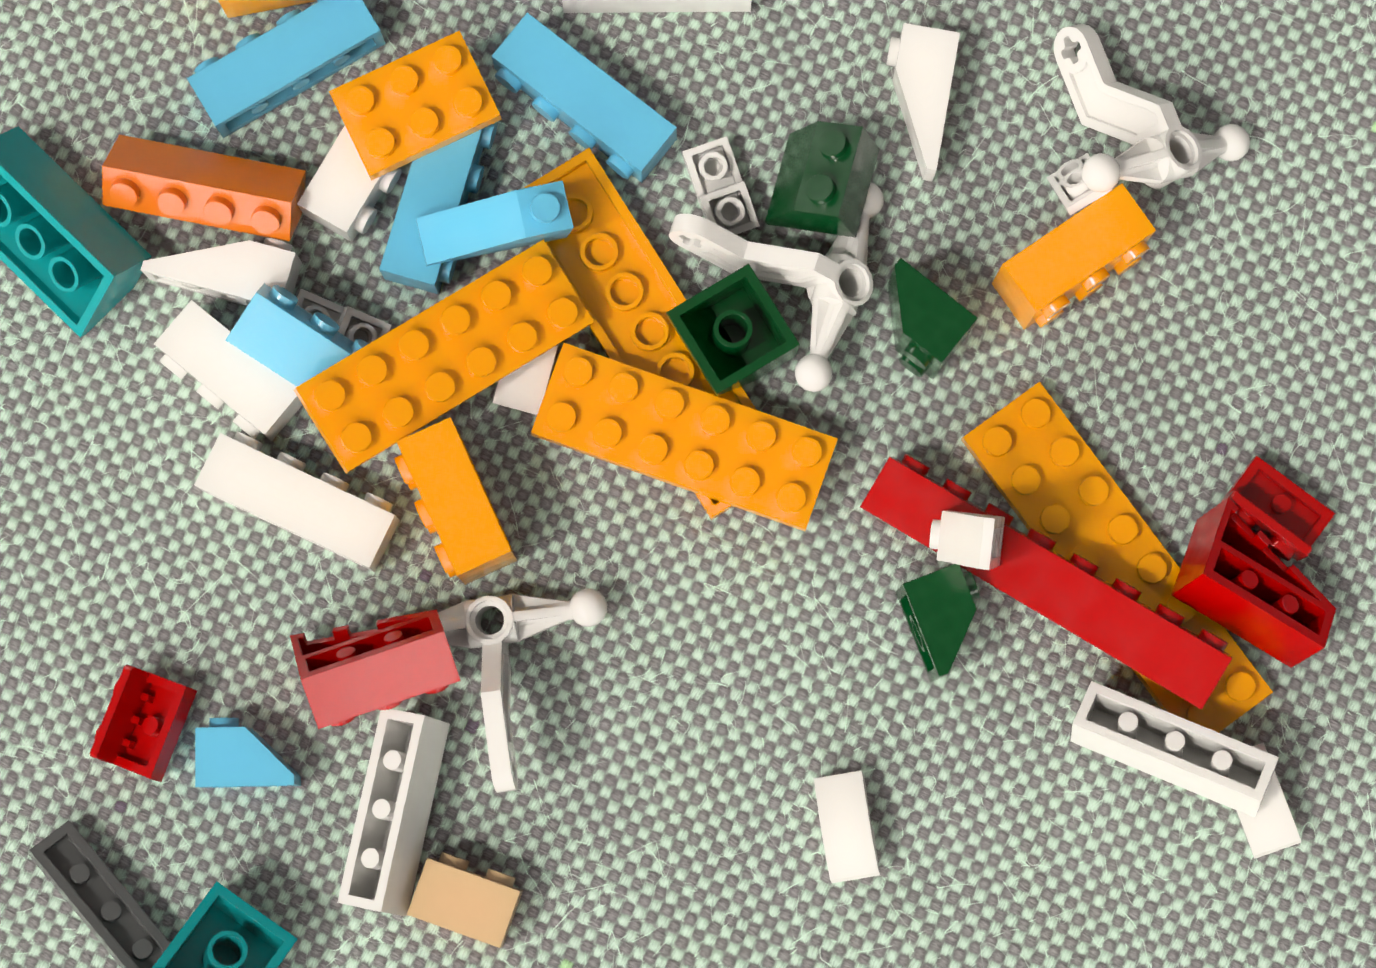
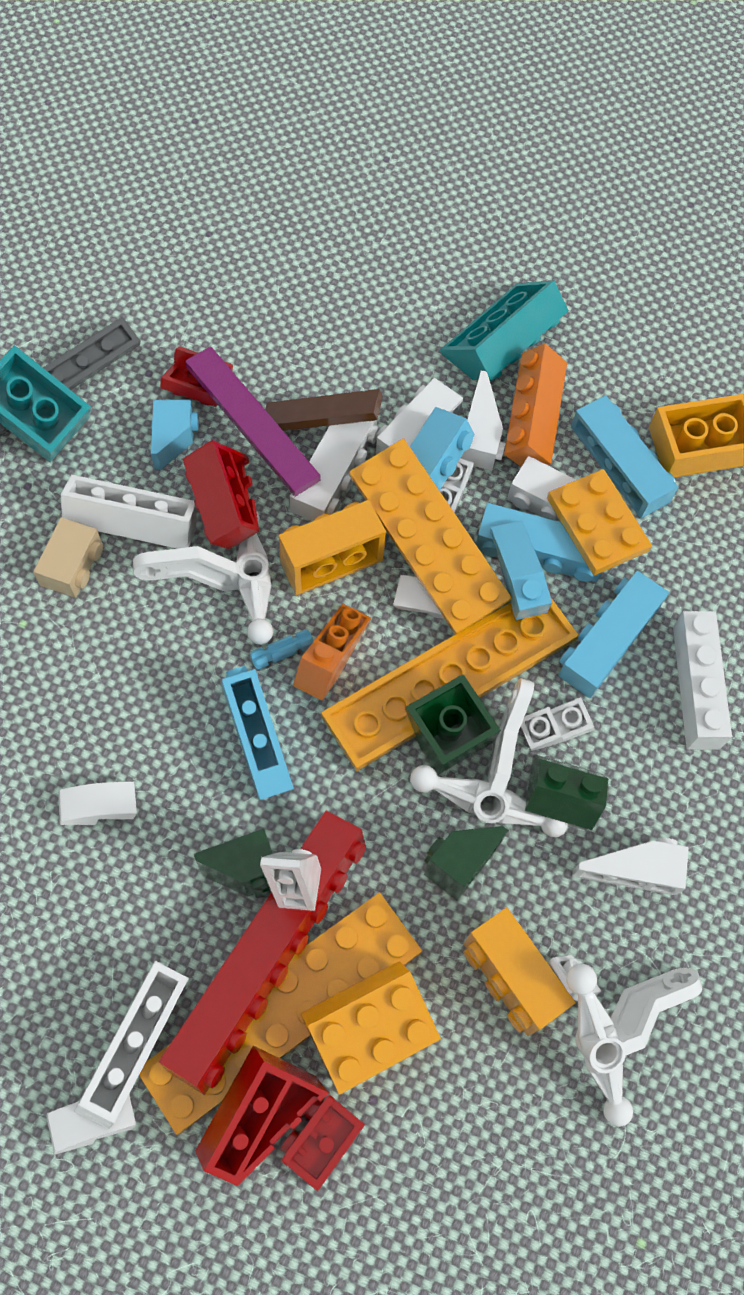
camera: 85 degrees right, 15 degrees down
(217, 520) = (326, 410): none -> reddish brown tile
(236, 628) = (253, 421): none -> magenta tile
(608, 577) = (281, 649): none -> medium azure axle
(613, 503) = (330, 652): none -> orange slope
(684, 436) = (375, 695): light orange plate -> none
(743, 608) = (256, 732): none -> medium azure slope
(1142, 447) = (370, 1026): none -> light orange brick

